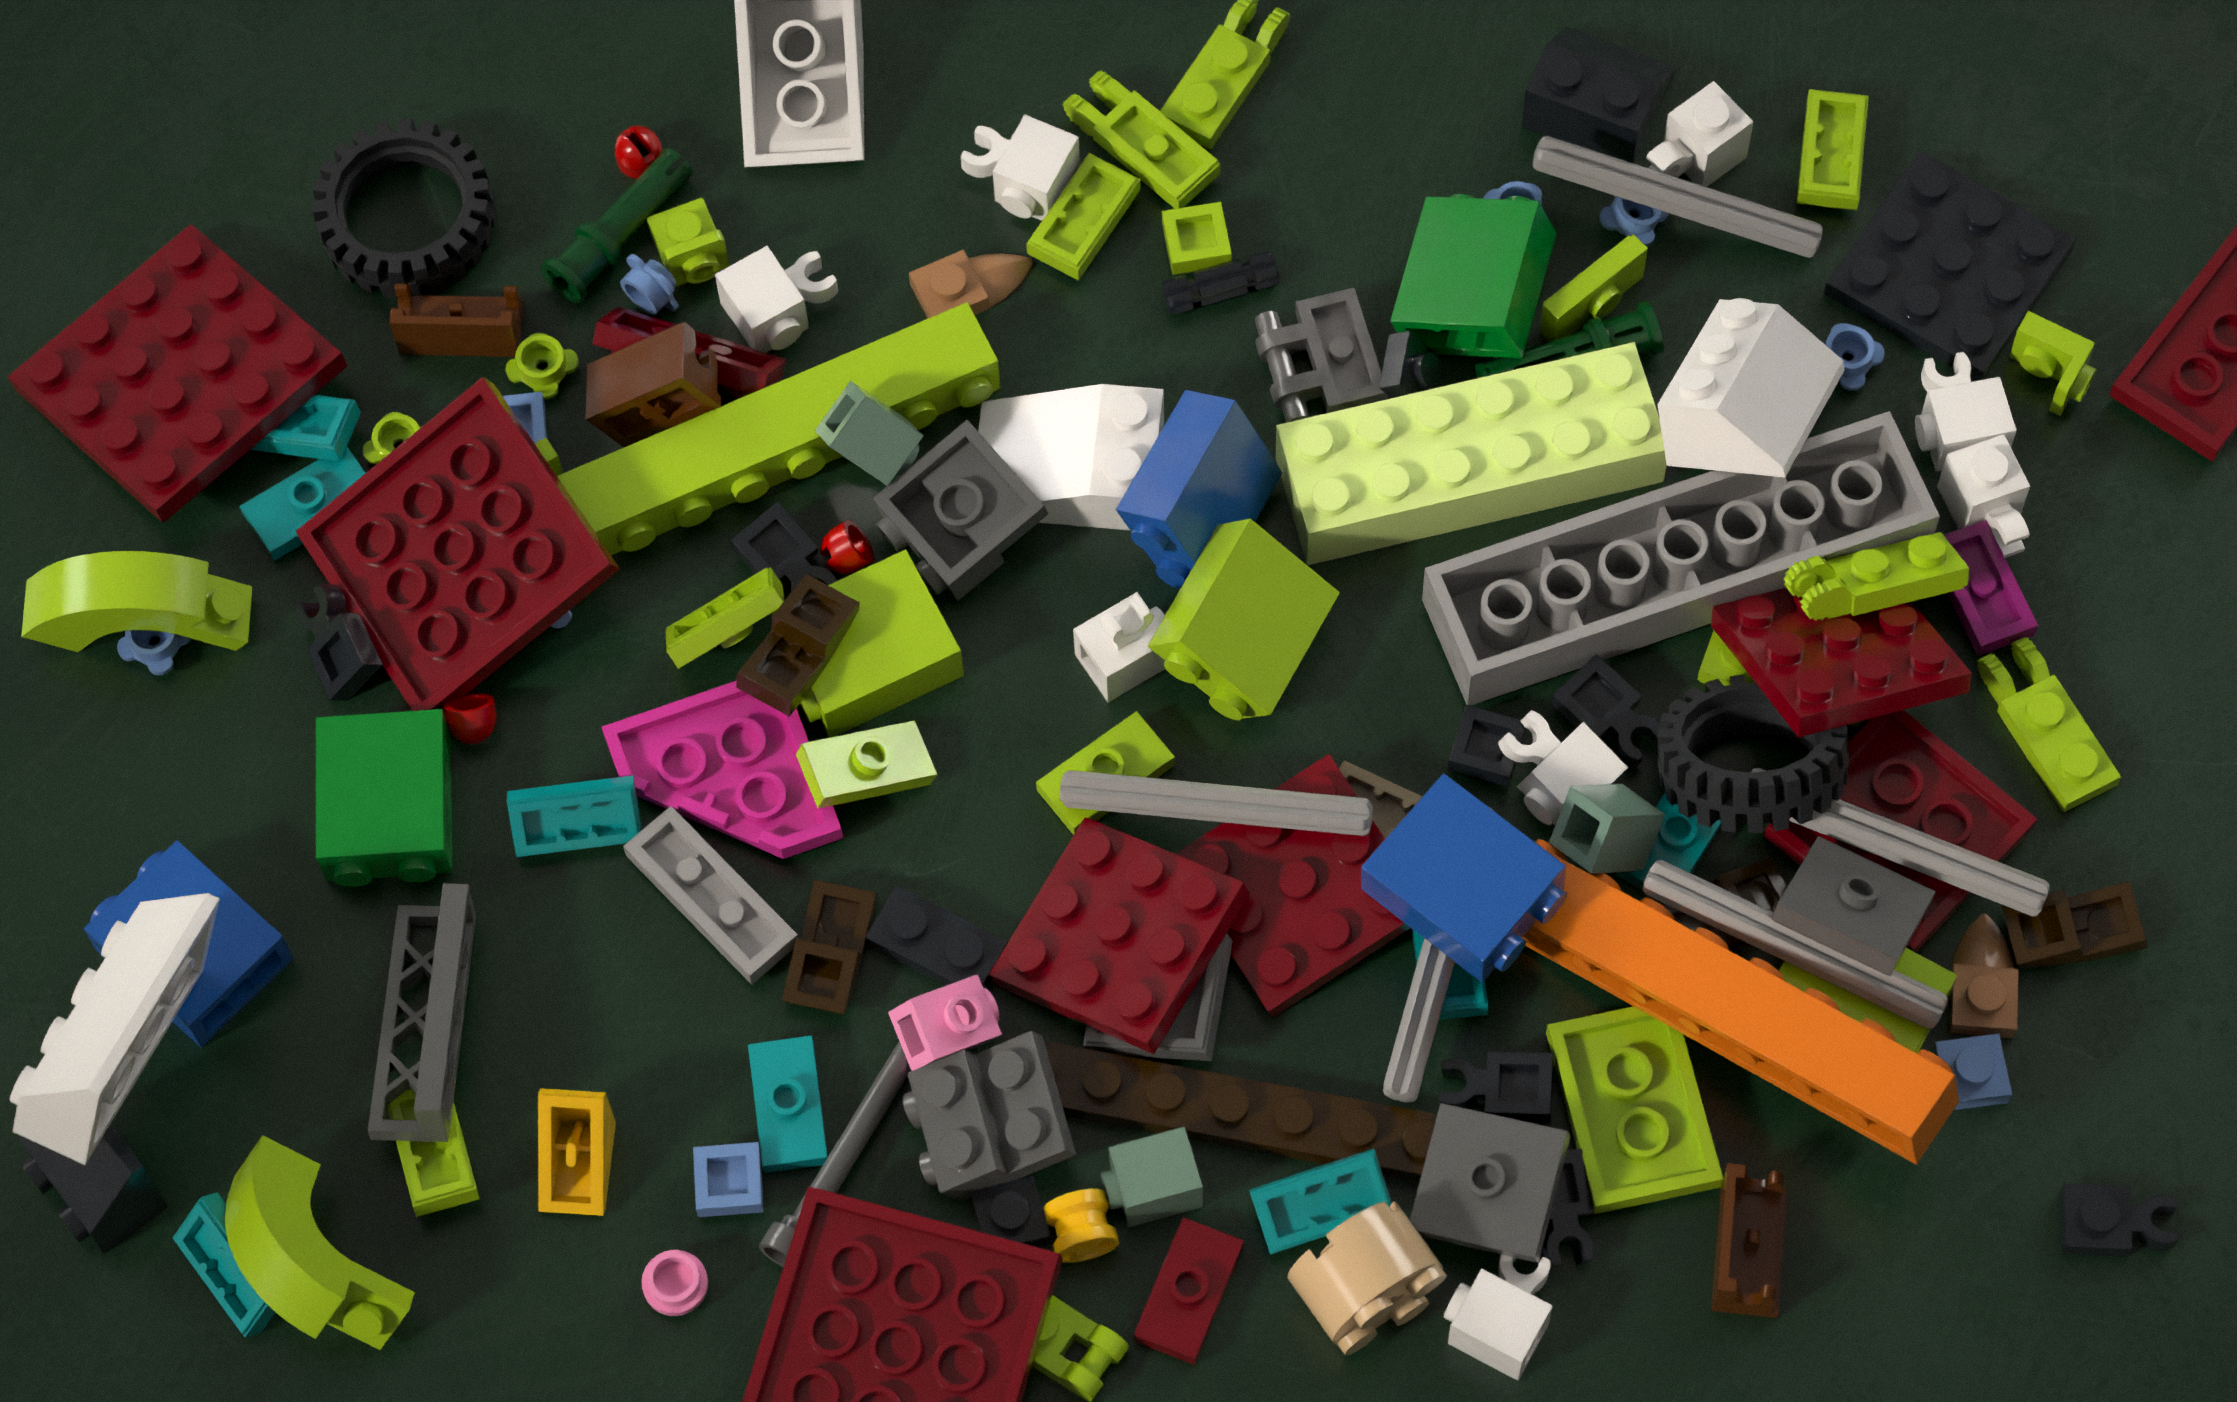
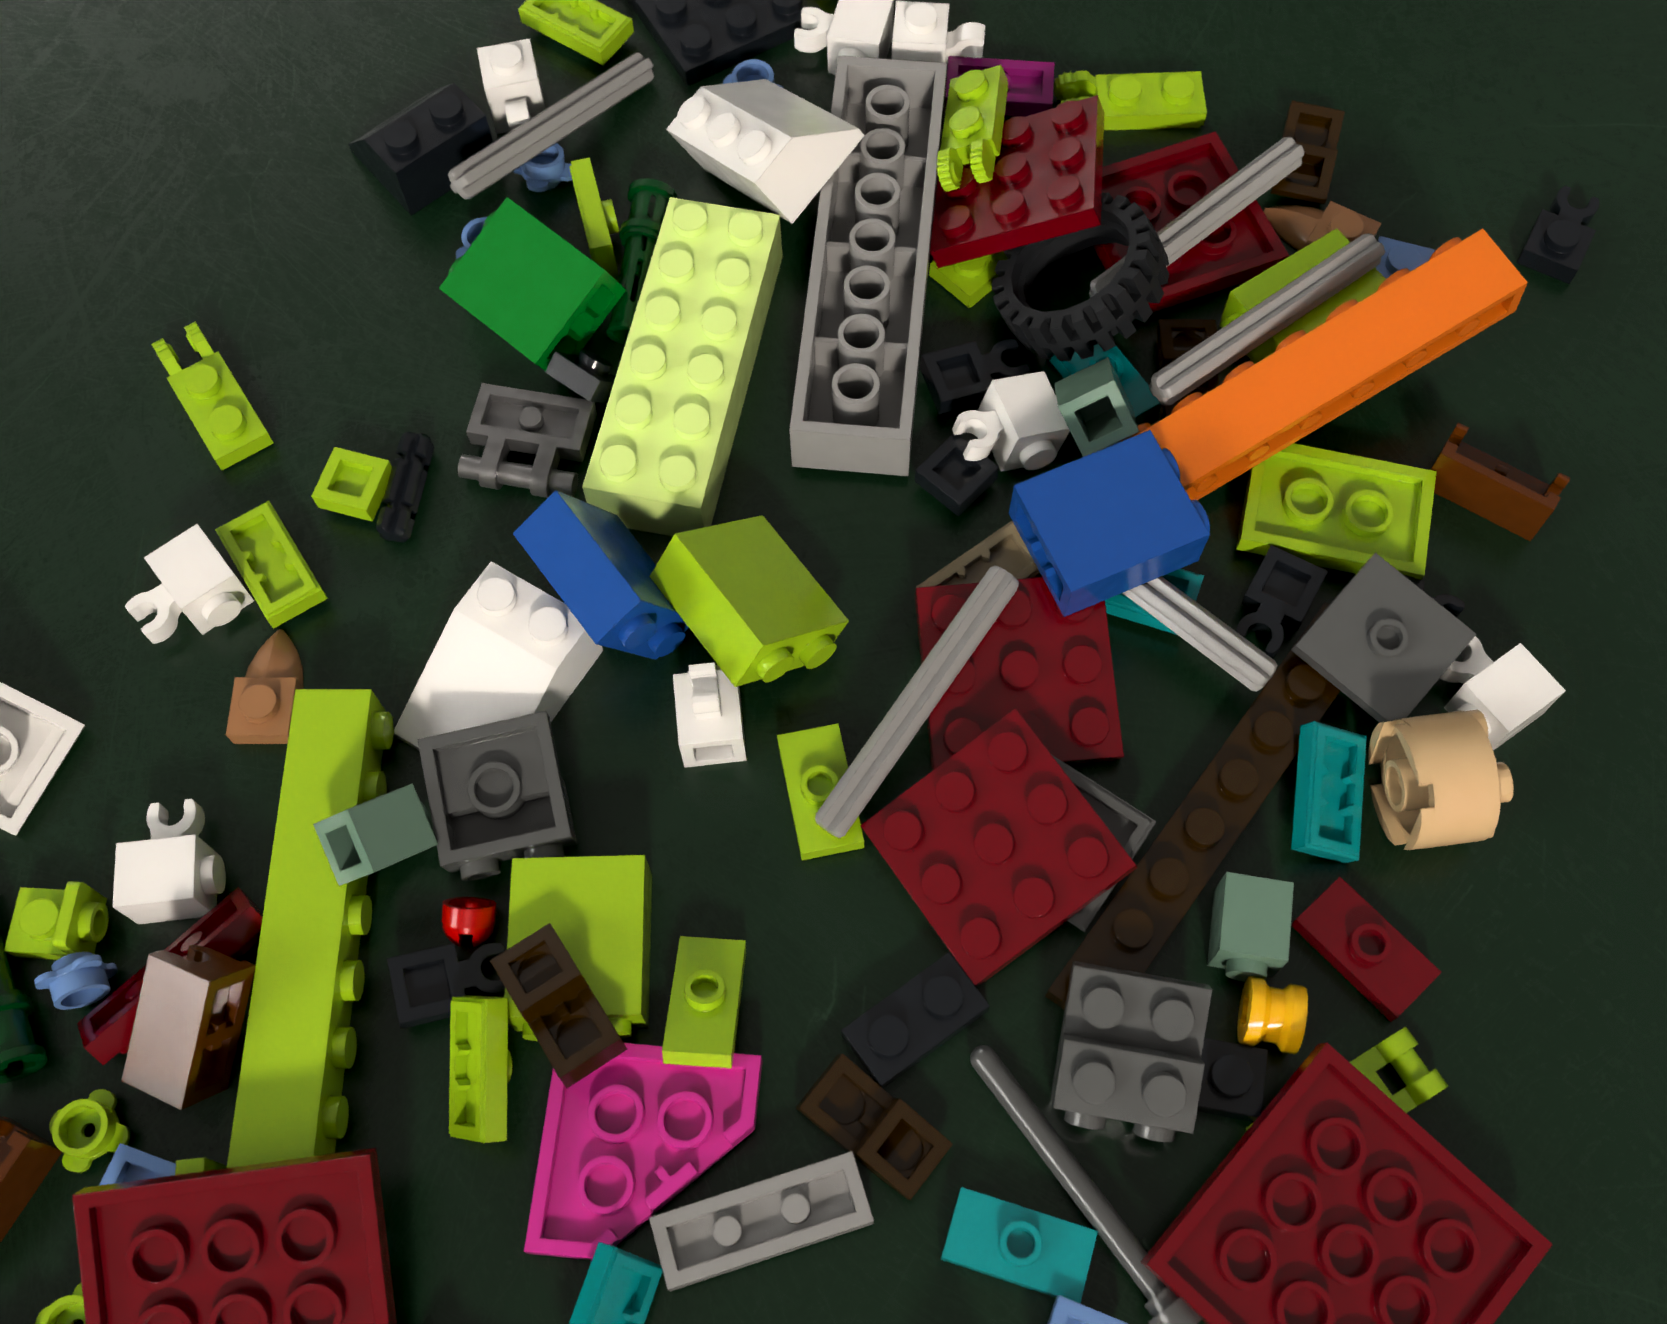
camera: 65 degrees left, 0 degrees up
(946, 1021) = (1018, 1047): bright pink brick -> none
(1144, 141) = (229, 484): lime hinge -> none
(1853, 906) = (1254, 264): dark grey plate -> none

